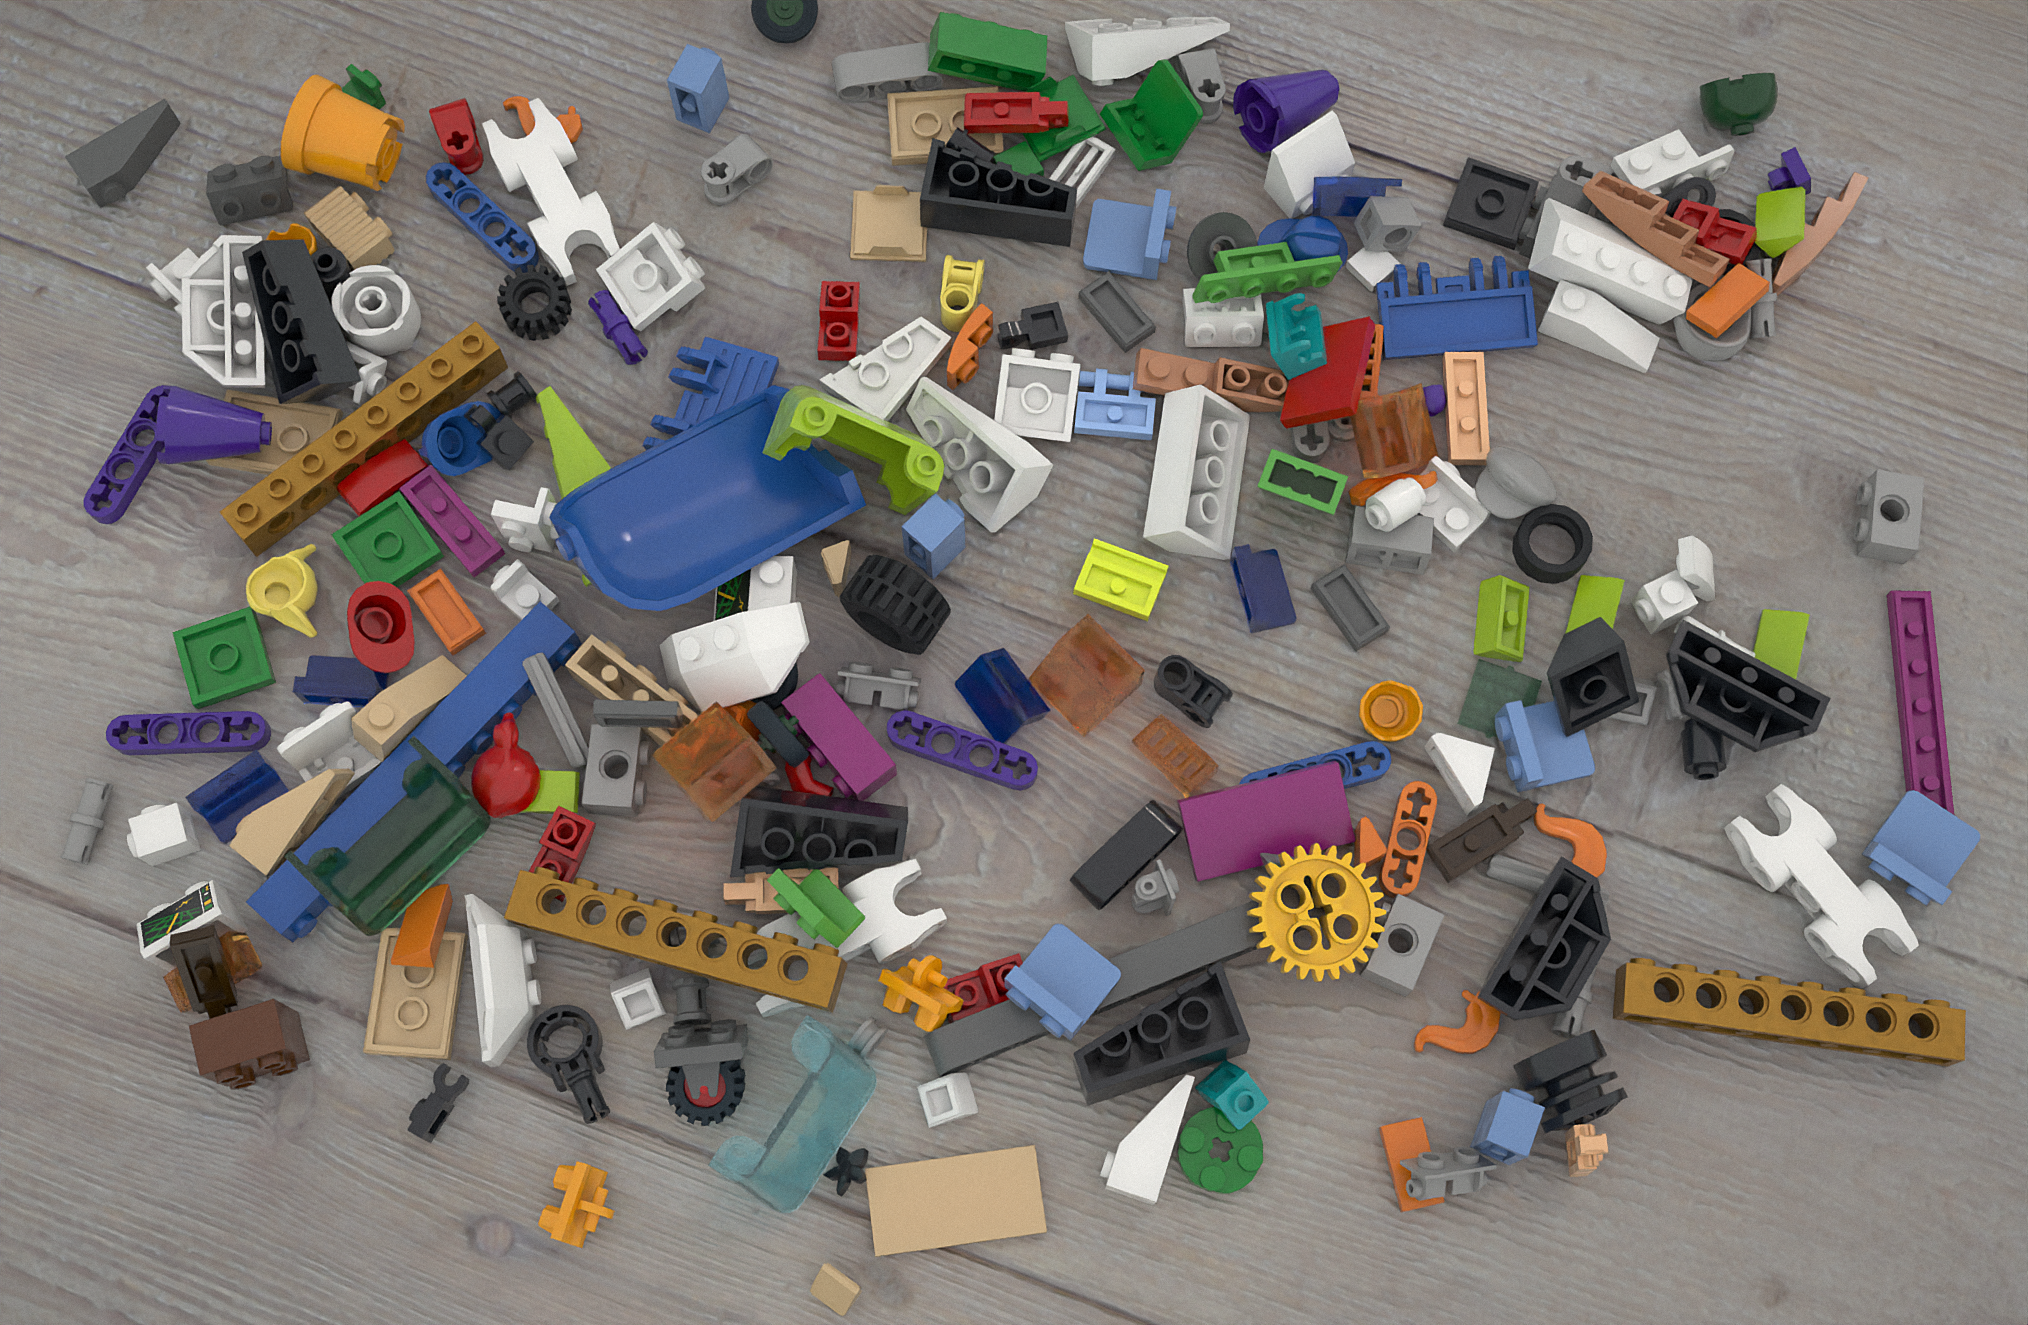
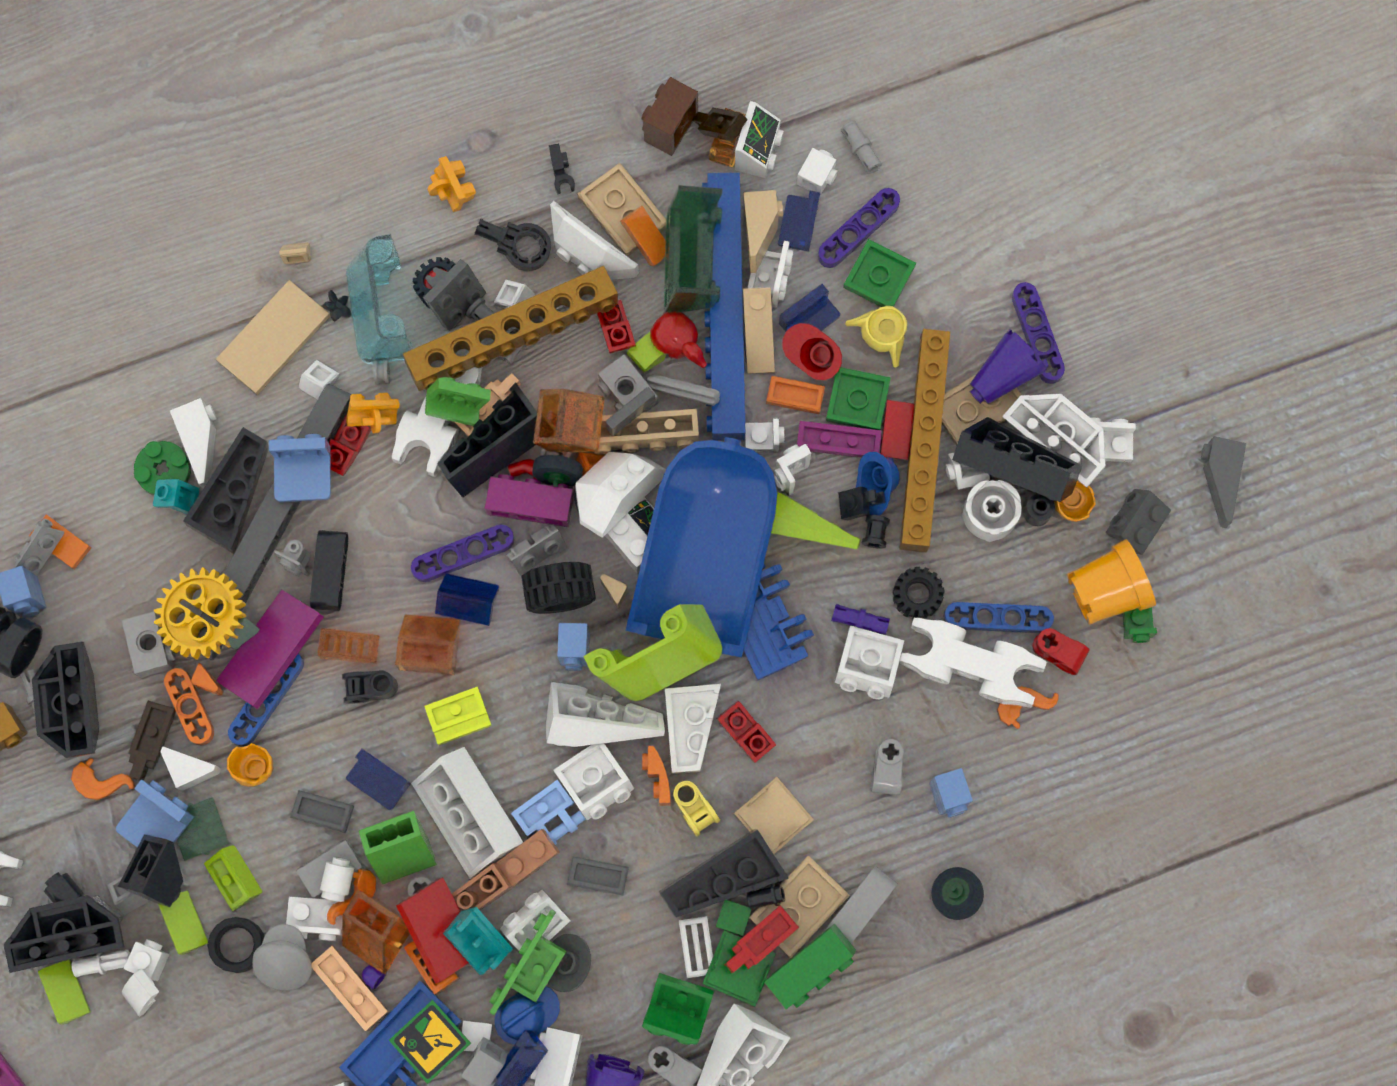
camera: 140 degrees right, 5 degrees up
(347, 227) = (1057, 543): tan brick -> none
(1038, 325) = (630, 824): black plate -> none
(1129, 236) = (629, 926): medium blue bracket -> none
(1425, 283) = (430, 1041): none -> piece
(1475, 1034) = (79, 628): orange piece -> none

